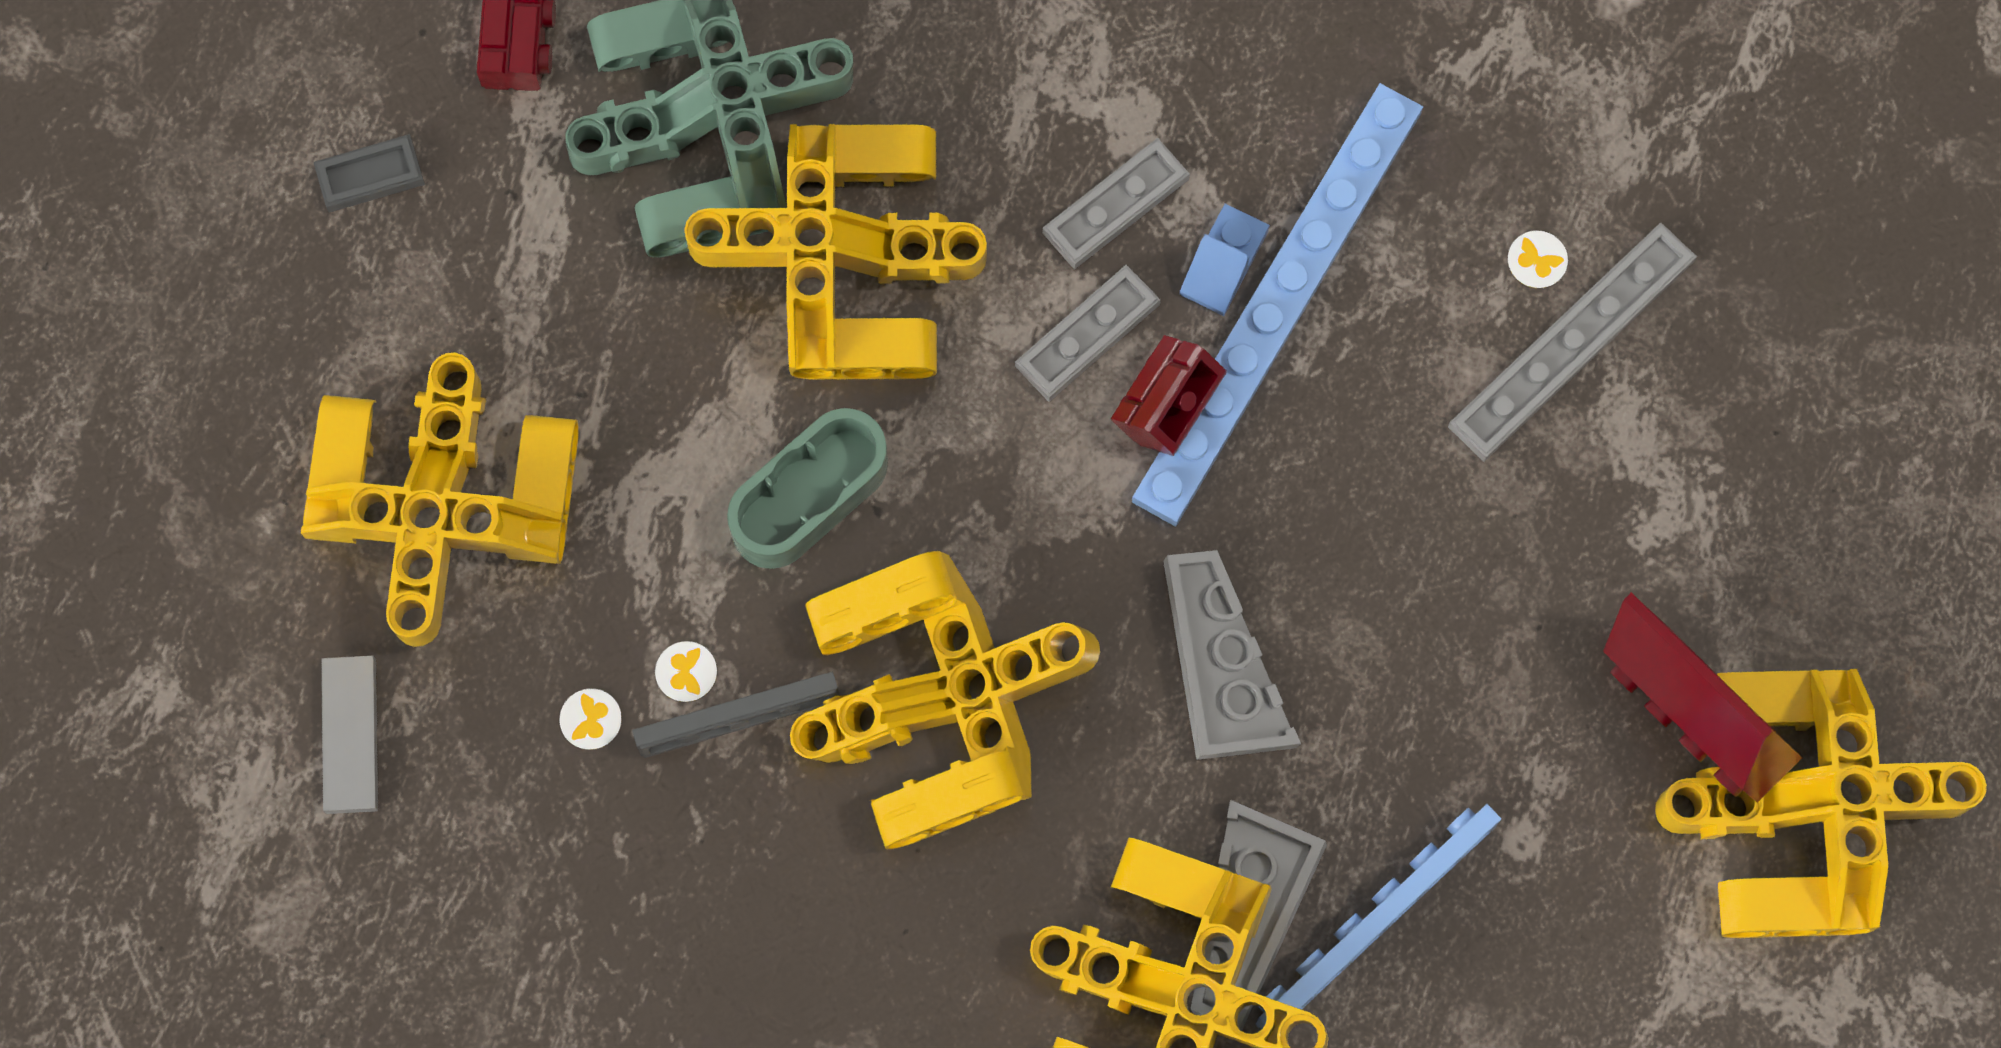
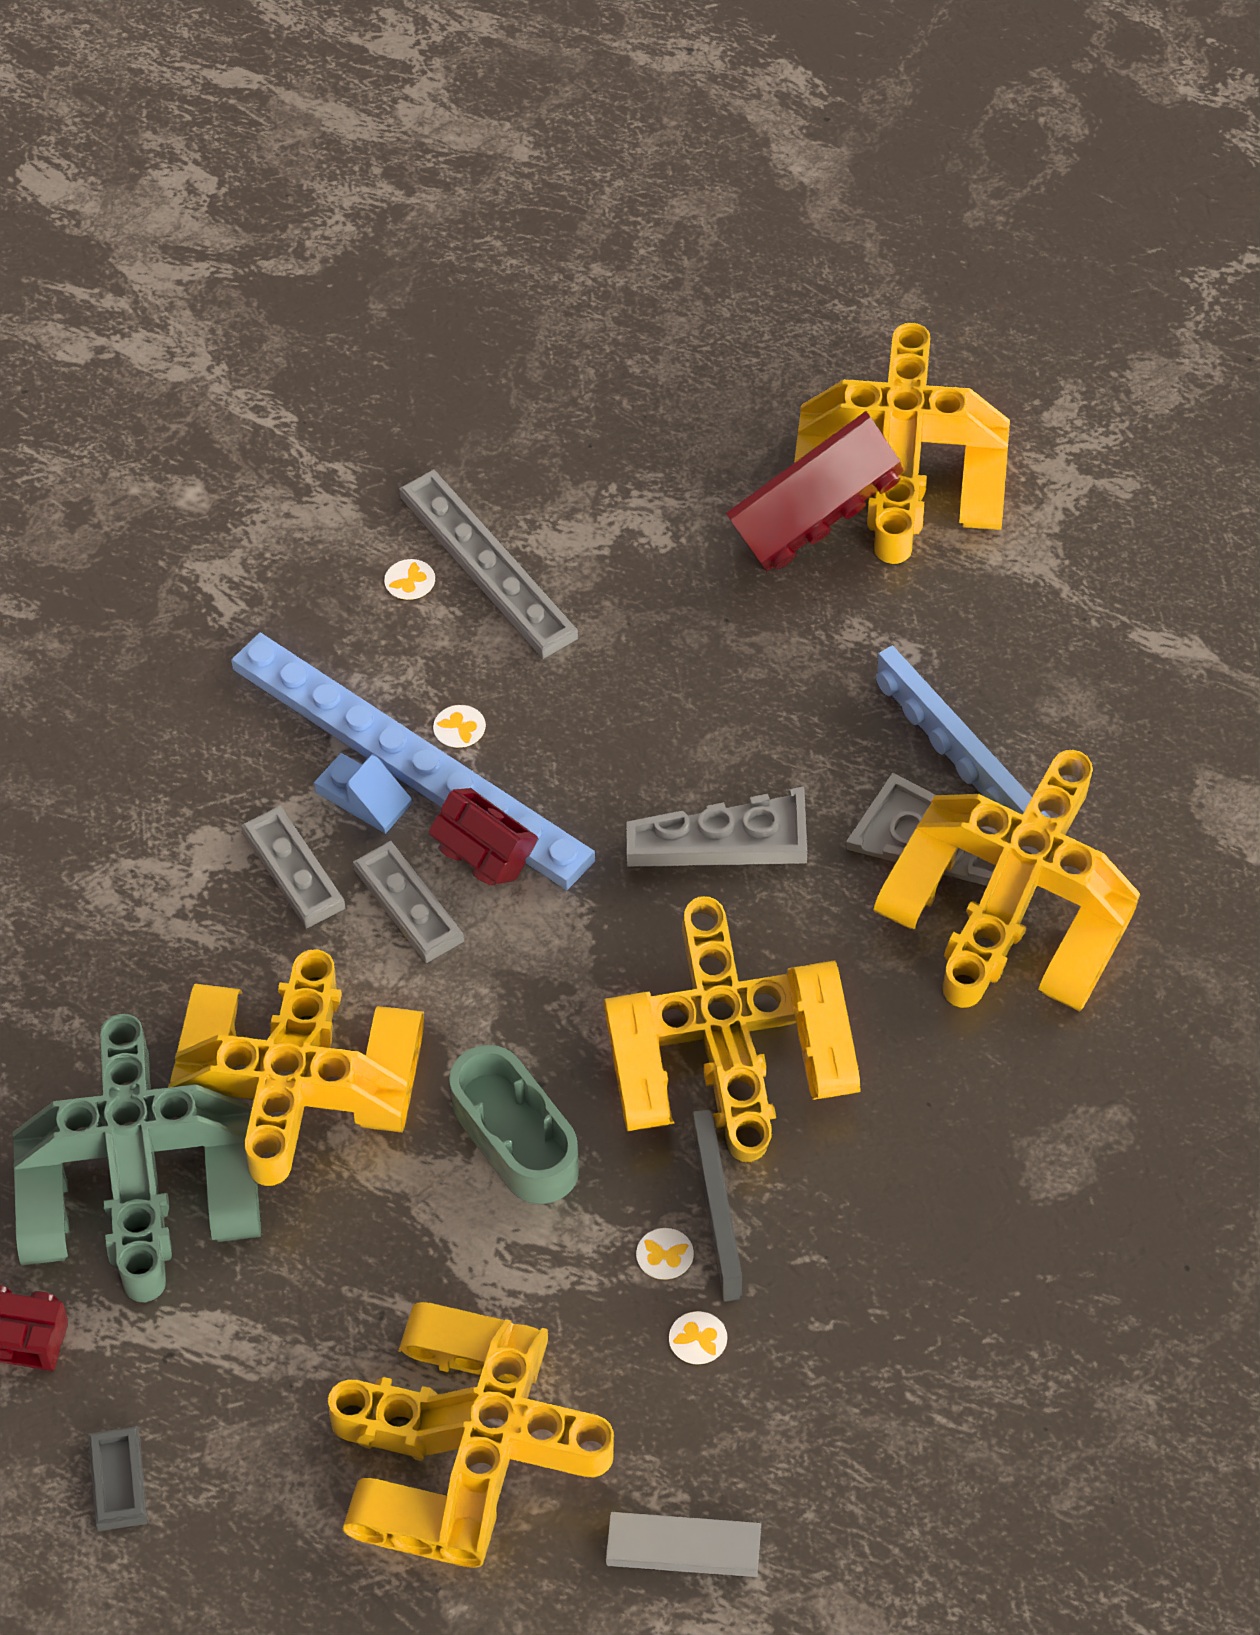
camera: 80 degrees left, 20 degrees down
(1337, 349) = (459, 726): none -> white sticker

